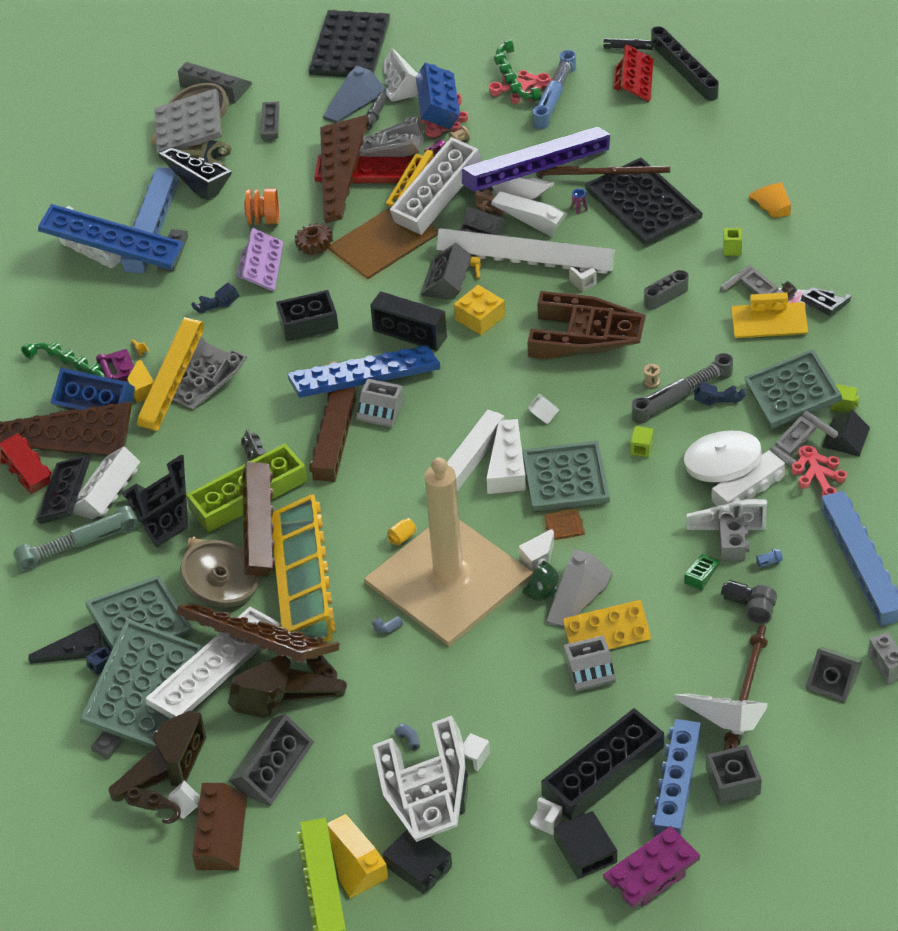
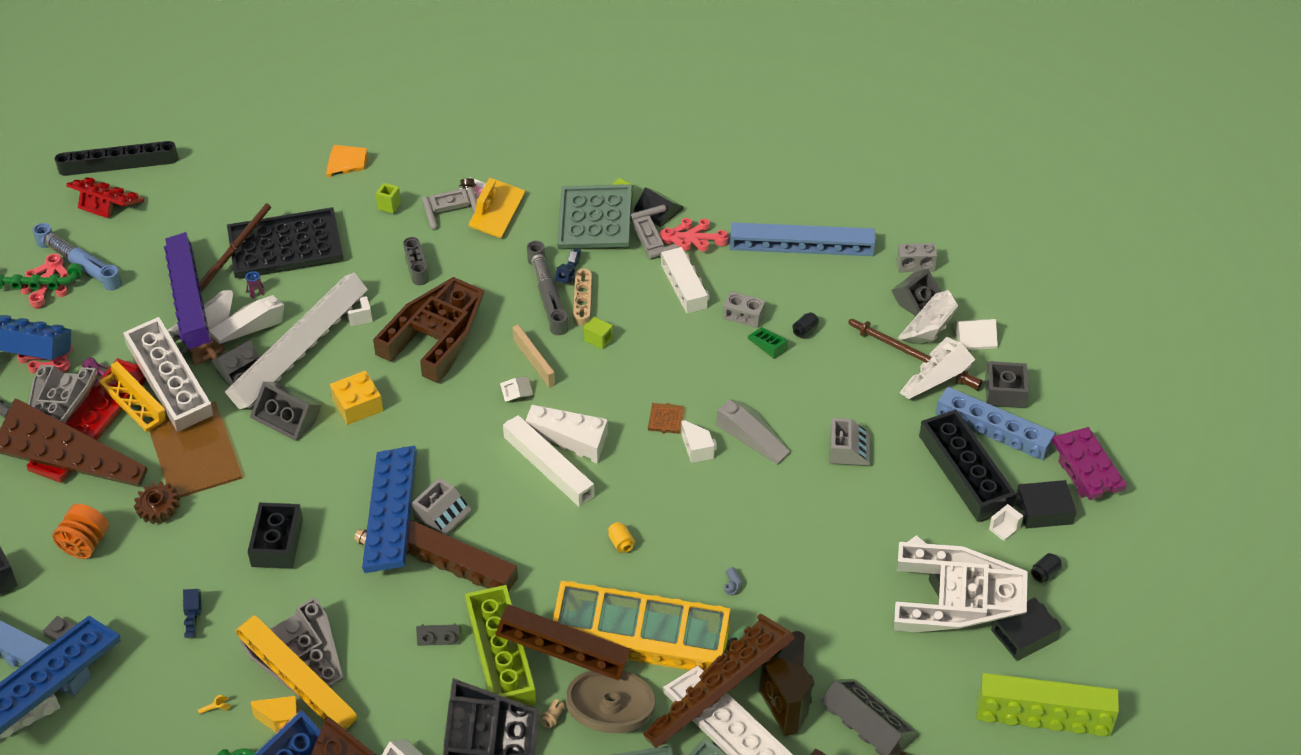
camera: 75 degrees left, 0 degrees up
(121, 361) = (232, 730): magenta plate -> none
(260, 260) = (152, 560): lavender bracket -> none
(355, 858) = (1020, 663): yellow wedge -> none
(408, 320) = (342, 452): black brick -> none
(411, 734) = (879, 598): sand blue arm -> none
(449, 571) = (695, 514): tan piece -> none
(464, 132) = (87, 348): tan bush -> none
(475, 262) = (283, 381): yellow hand -> none
(501, 861) = (1046, 567): none -> black brick
(542, 582) = (737, 449): dark green cylinder -> none
(565, 476) = (613, 395): sand green plate -> none
(589, 406) = (533, 356): none -> tan tile
(618, 624) = (808, 420): yellow bracket -> none
(621, 43) = (58, 183): black pin -> none
(653, 375) = (520, 302): tan bush -> none
(710, 412) = (582, 296): none -> tan beam
(723, 456) = (649, 284): white dish -> none
(752, 510) = (720, 287): white wedge -> none
(761, 604) = (829, 314): dark grey wheel -> none
(769, 558) = (775, 294): medium blue pin -> none
(790, 689) = (930, 319): none -> white wedge
(805, 736) = (976, 333): none -> white slope
(824, 300) = (494, 169): black wing -> none

